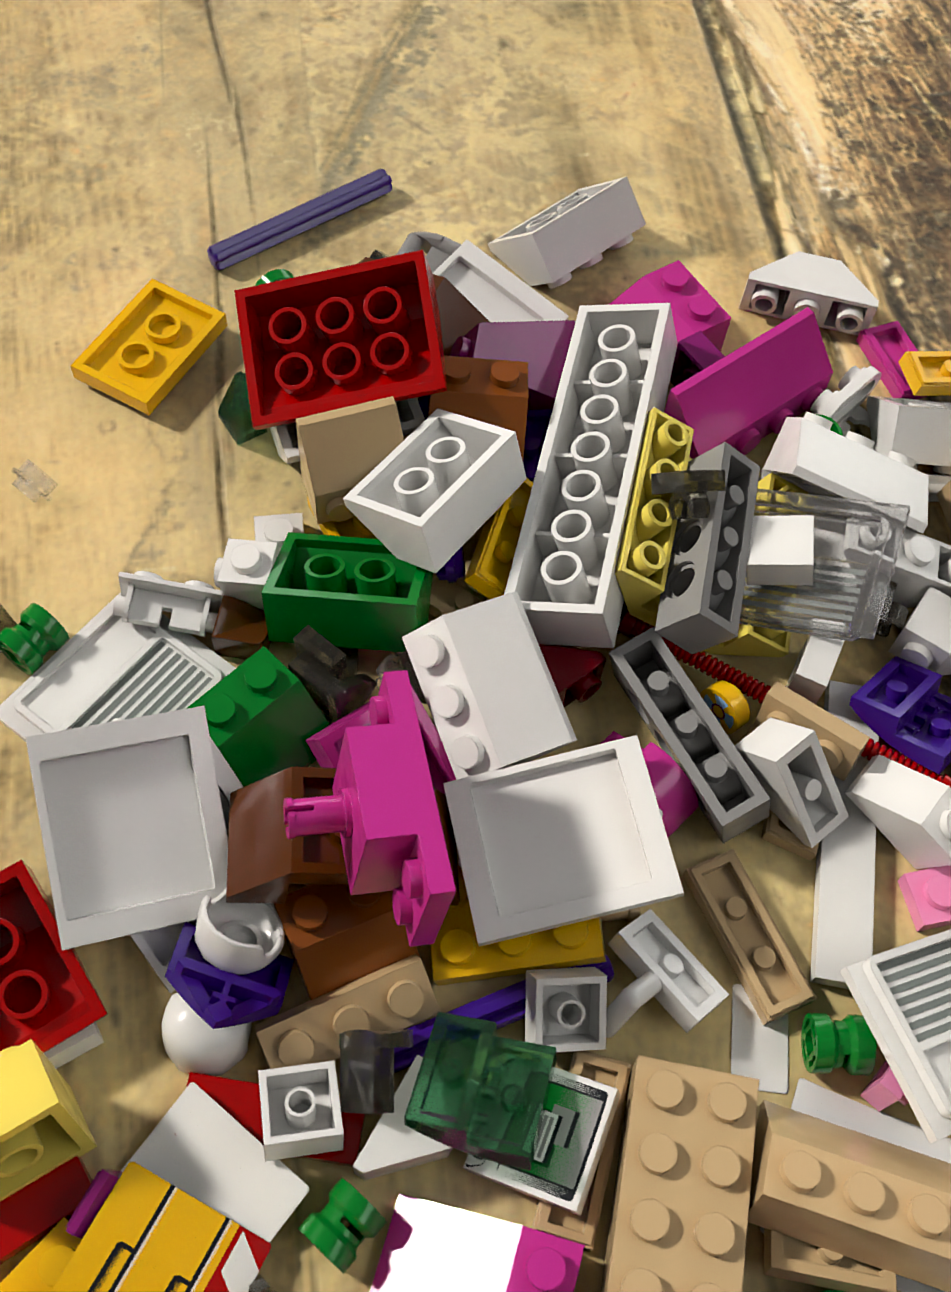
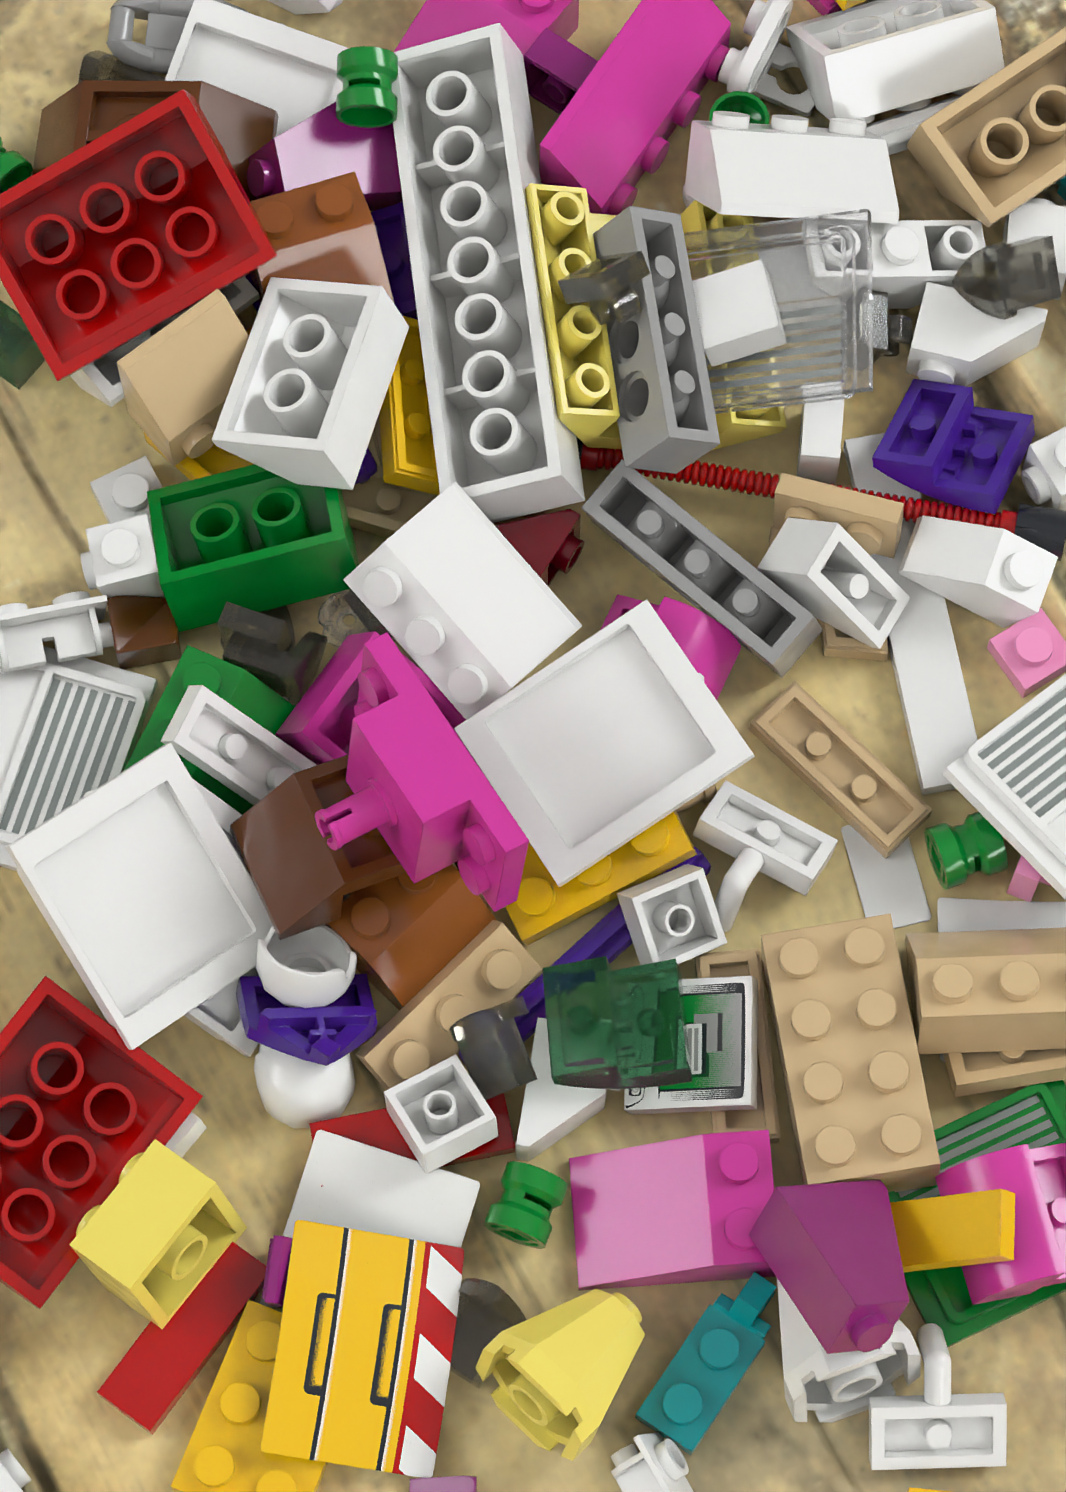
camera: 15 degrees left, 10 degrees up
(257, 727) = (231, 745): none -> white plate
(558, 317) = (367, 87): none -> green wheel
(727, 705) = (734, 518): yellow tile -> none

